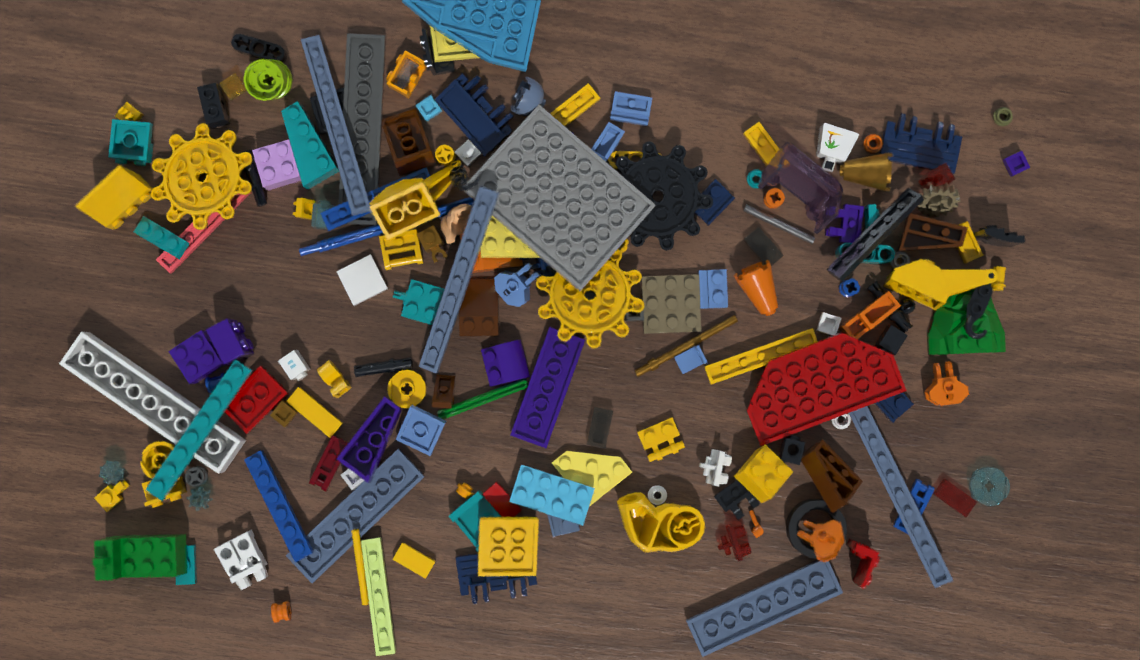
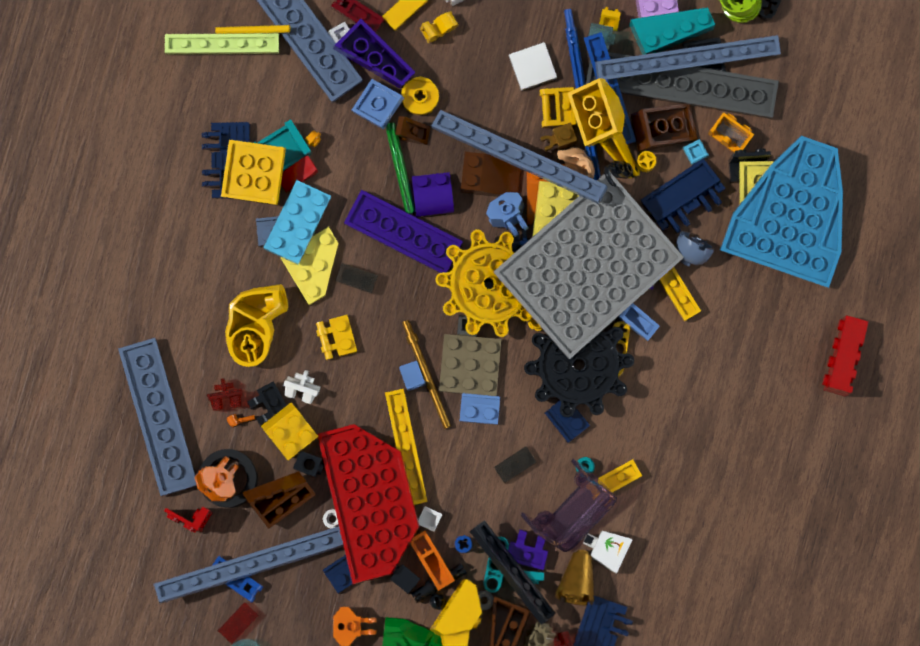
camera: 90 degrees right, 5 degrees down
(392, 366) = (444, 76): black pin -> none
(414, 560) = (251, 82): yellow tile -> none
(420, 301) = (504, 119): teal plate -> none
(468, 153) = (646, 184): white plate -> none
(631, 108) = (670, 350): medium blue plate -> none
(657, 488) = (287, 330): white plate -> none
(759, 287) = (475, 453): orange cone -> none
(773, 202) = (560, 481): orange wheel -> none
(779, 224) = (536, 484): flat silver bar -> none
(878, 141) = (611, 585): orange plate -> none

